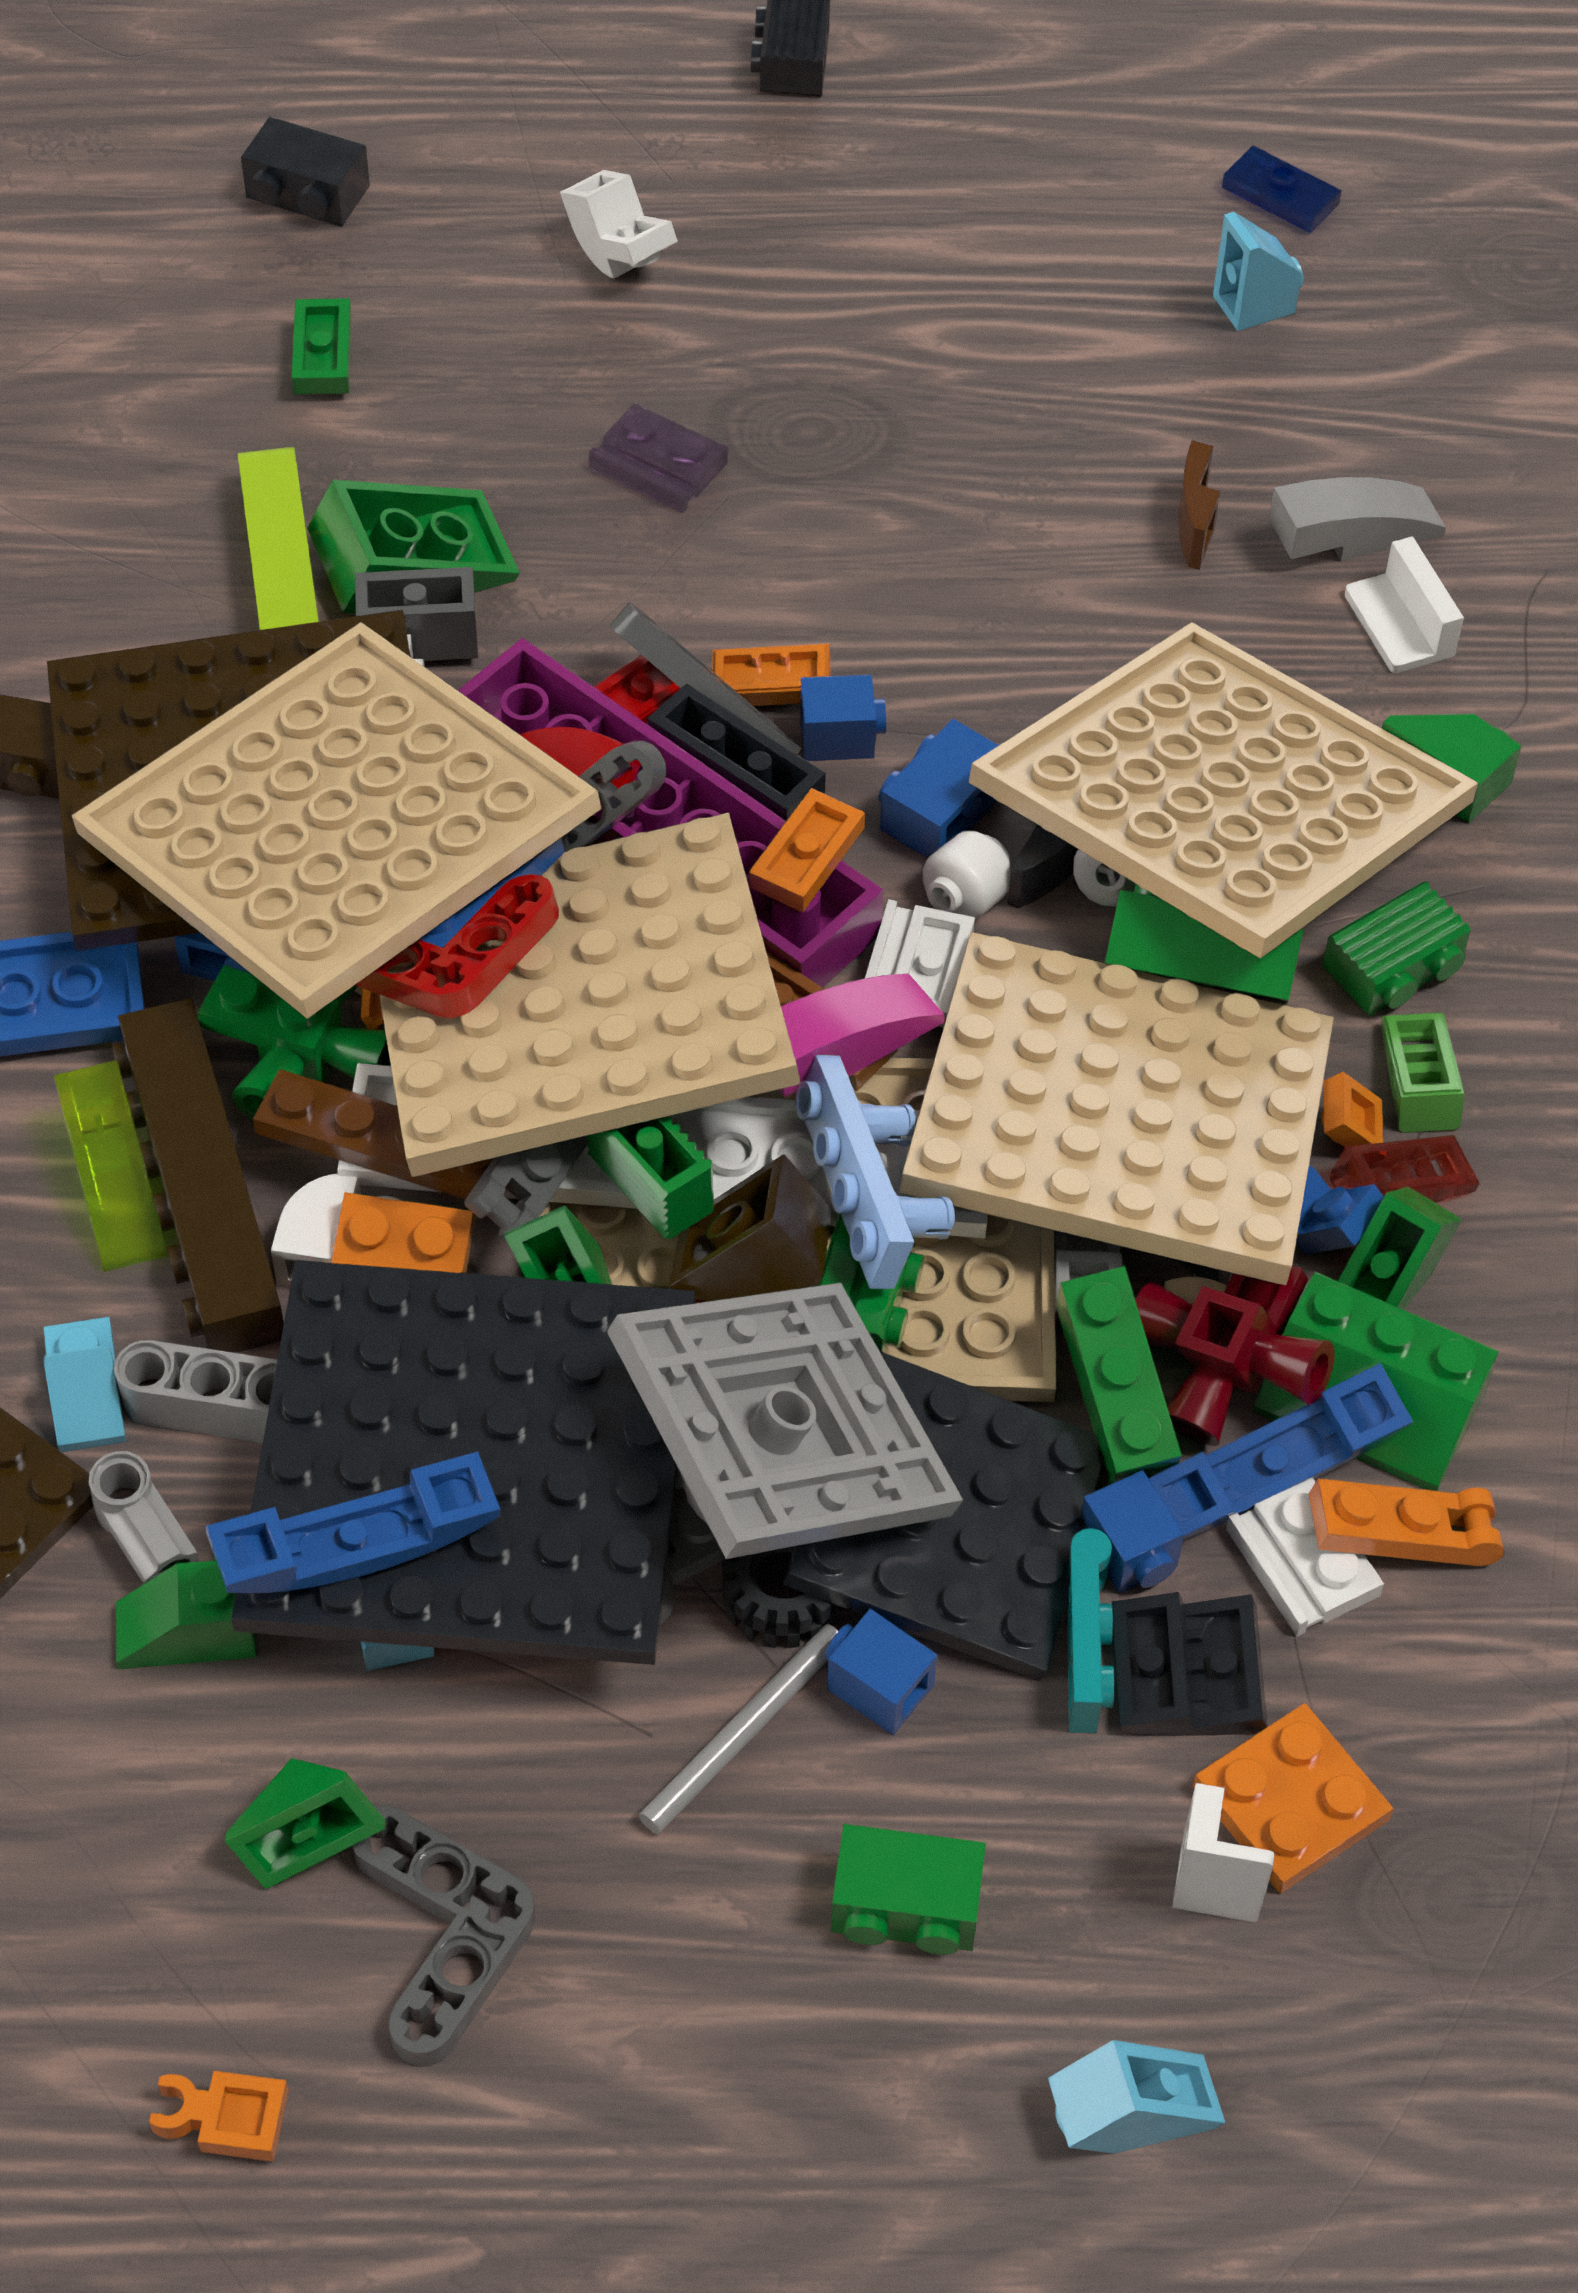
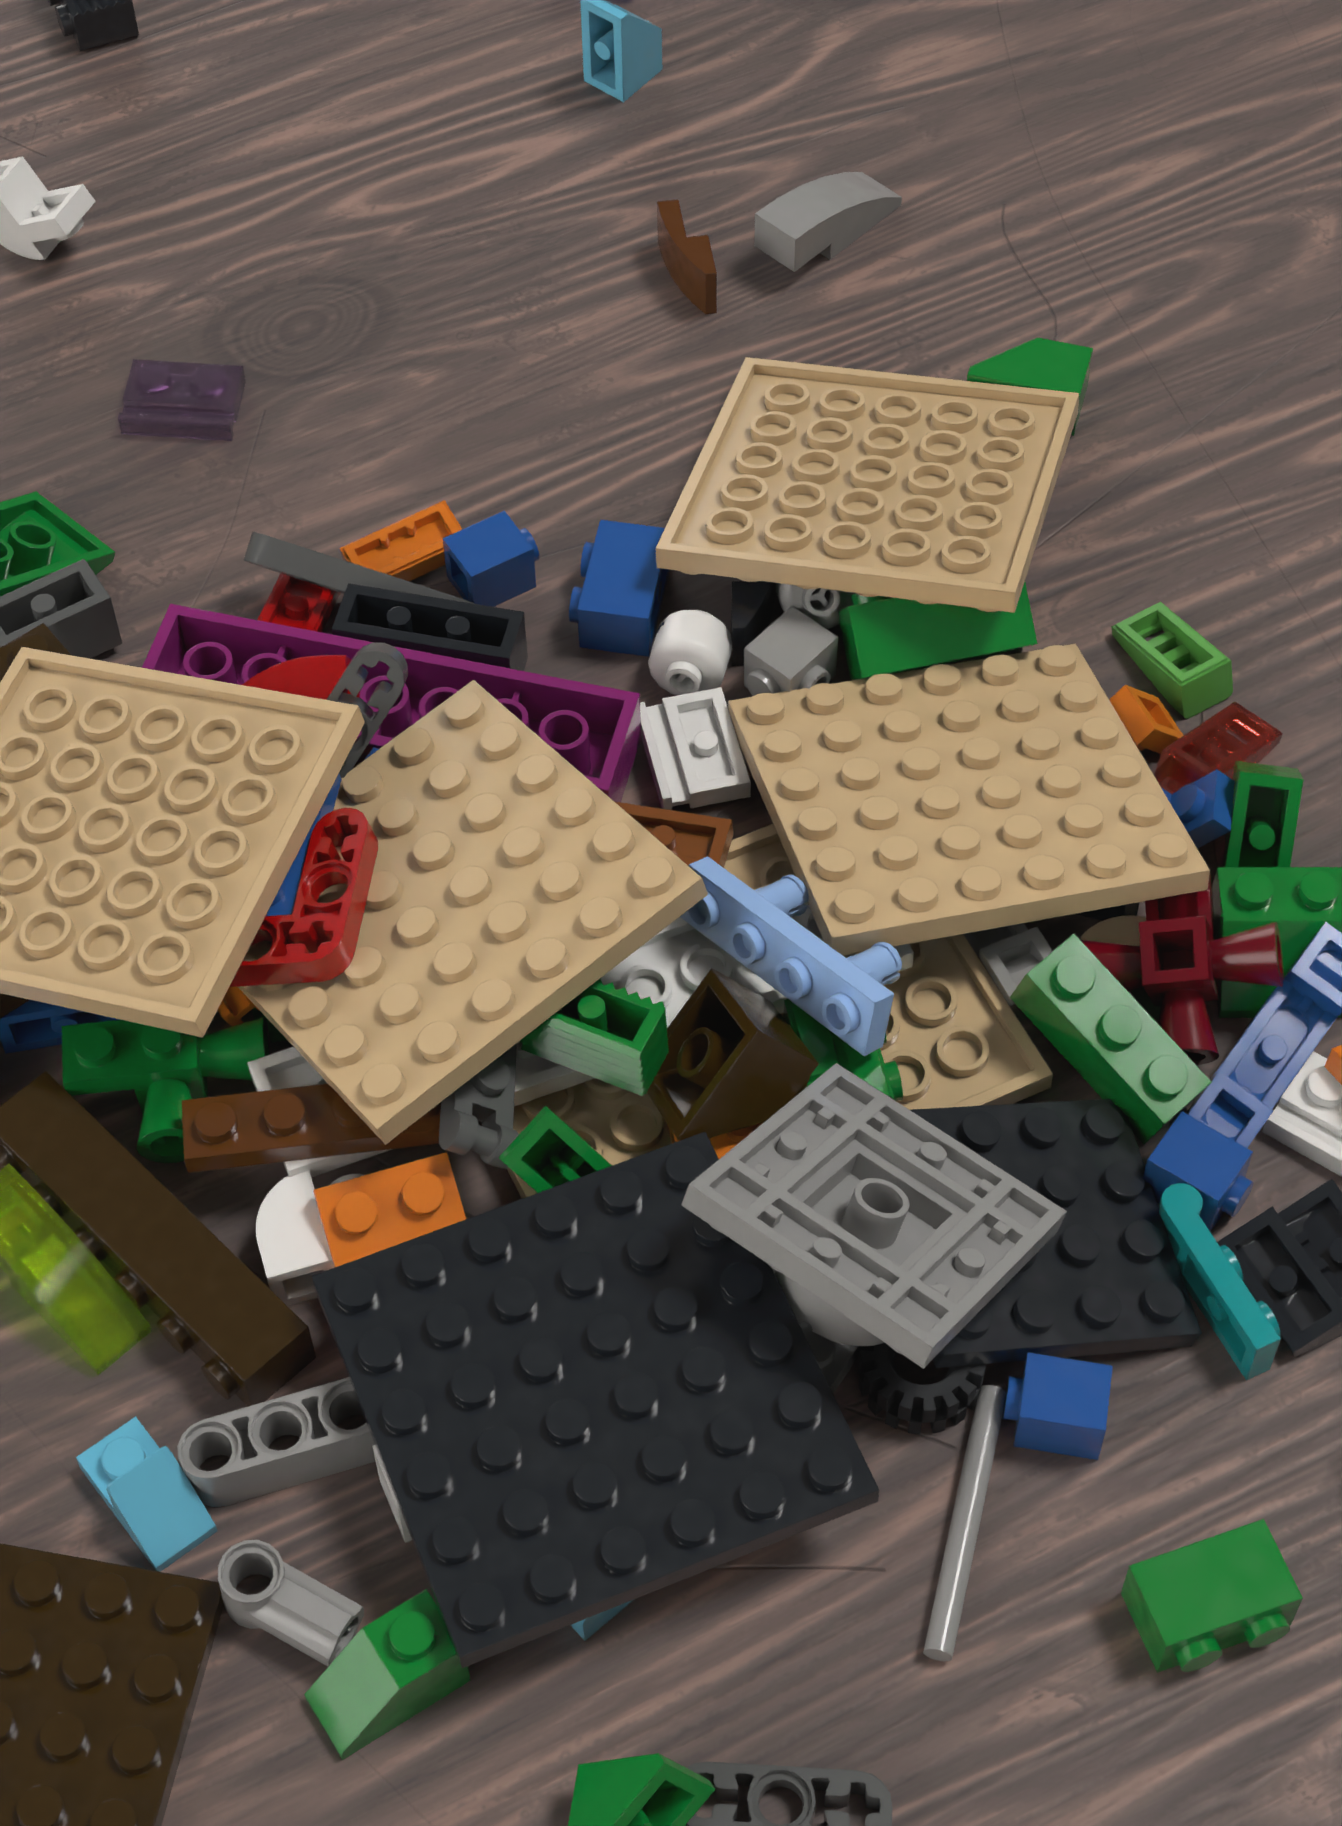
camera: 25 degrees left, 0 degrees up
(355, 1536) = (544, 1514): blue slope -> none
(806, 850) = (557, 684): orange plate -> none
(858, 1022) = (704, 811): dark pink slope -> none
(1055, 915) = (790, 655): none -> light grey brick
(1397, 949) = (1092, 563): green brick -> none
(1407, 610) = (917, 275): white panel -> none

